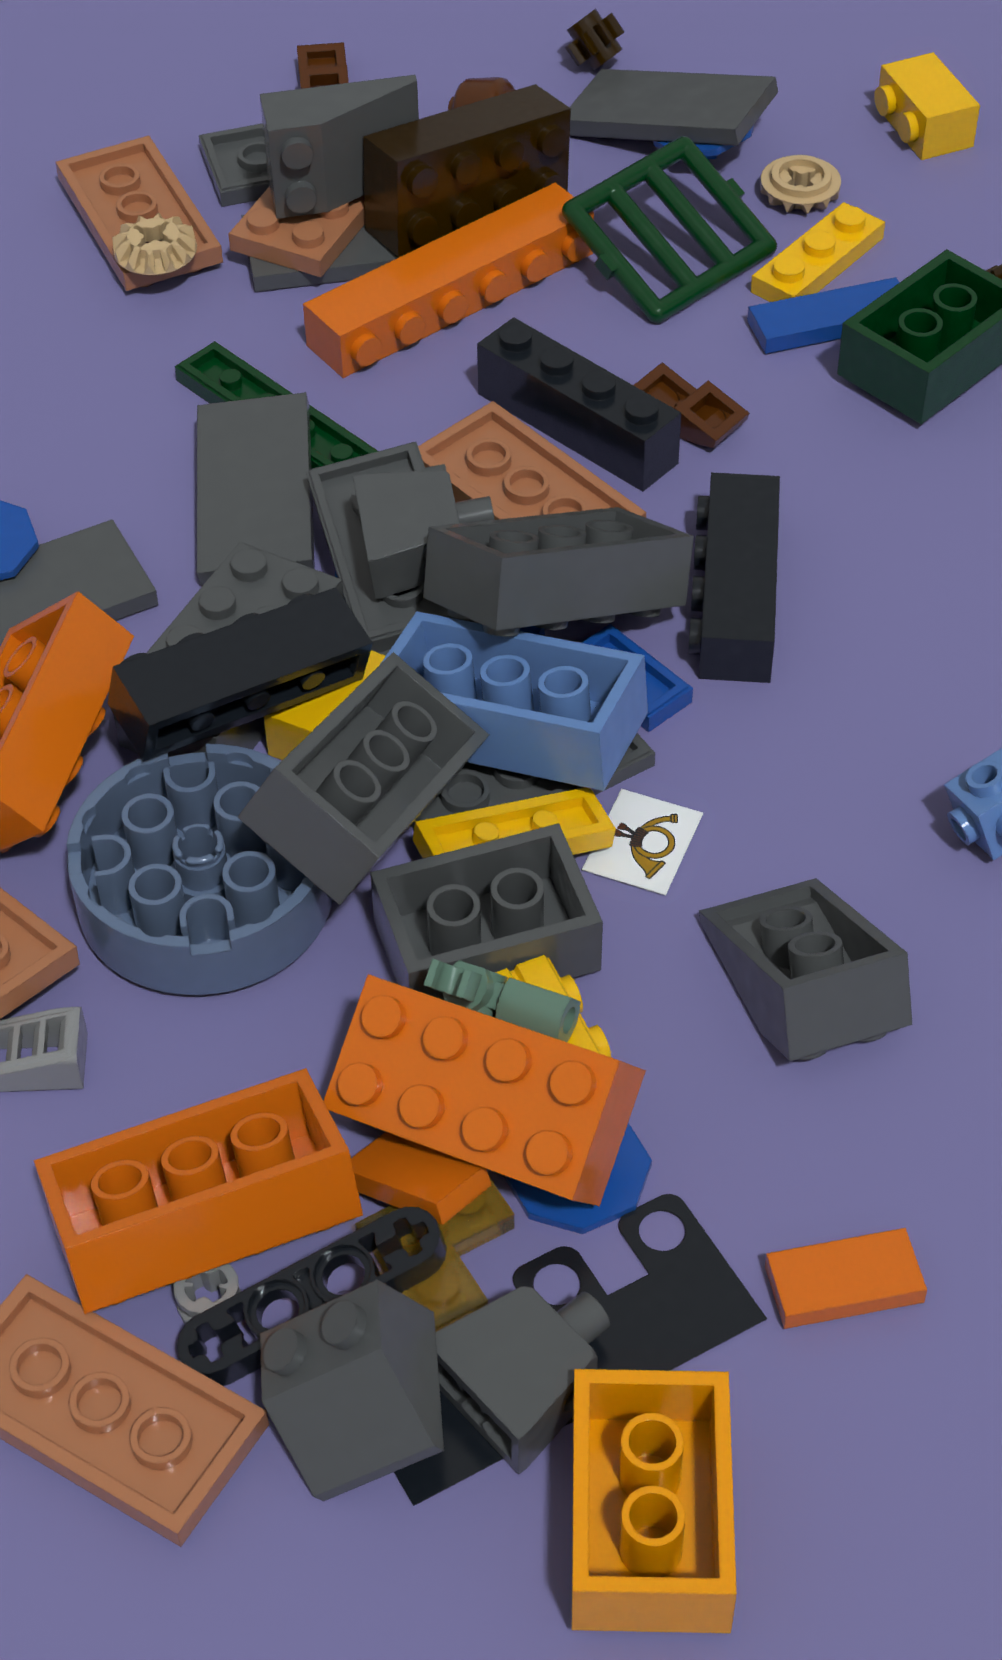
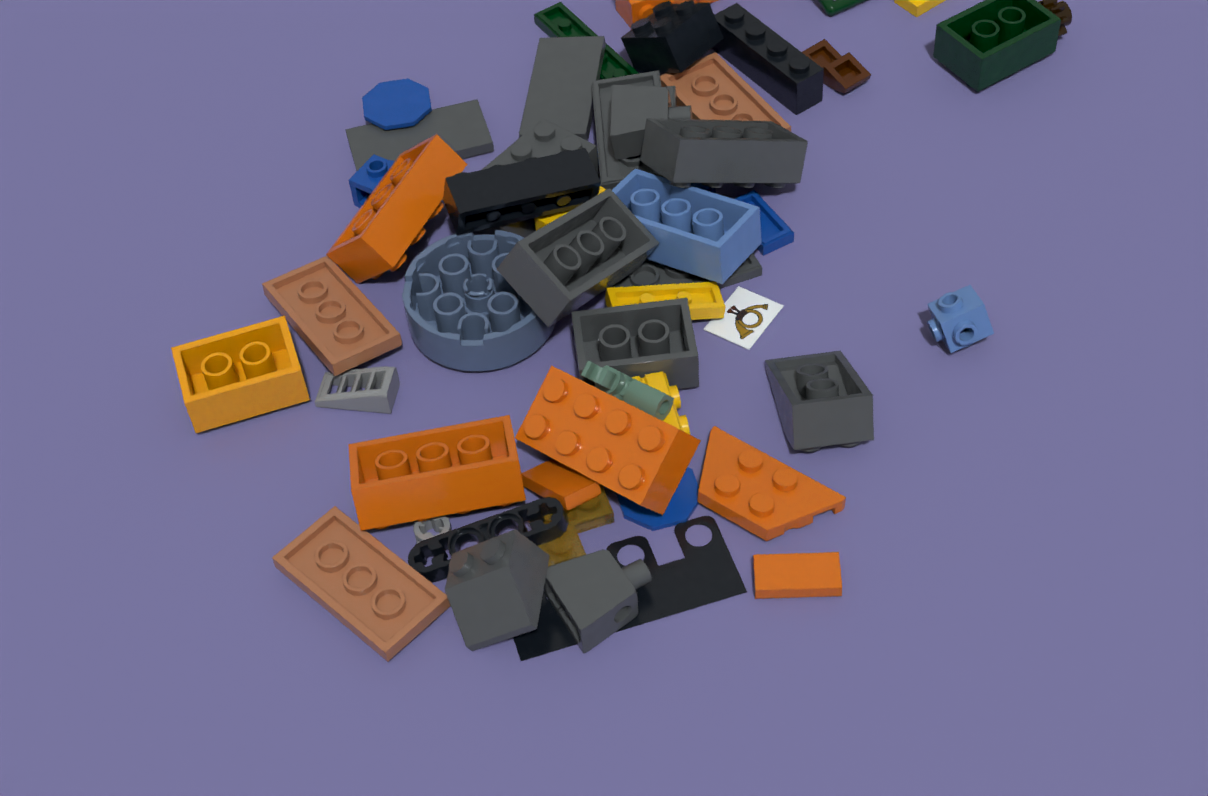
camera: 15 degrees right, 0 degrees up
(420, 384) = (672, 37): none -> black brick
(652, 1502) = (648, 675): light orange brick -> none
(739, 578) = (837, 171): black brick -> none
(745, 1136) = (759, 489): none -> orange wing
(811, 317) = (921, 21): blue tile -> none

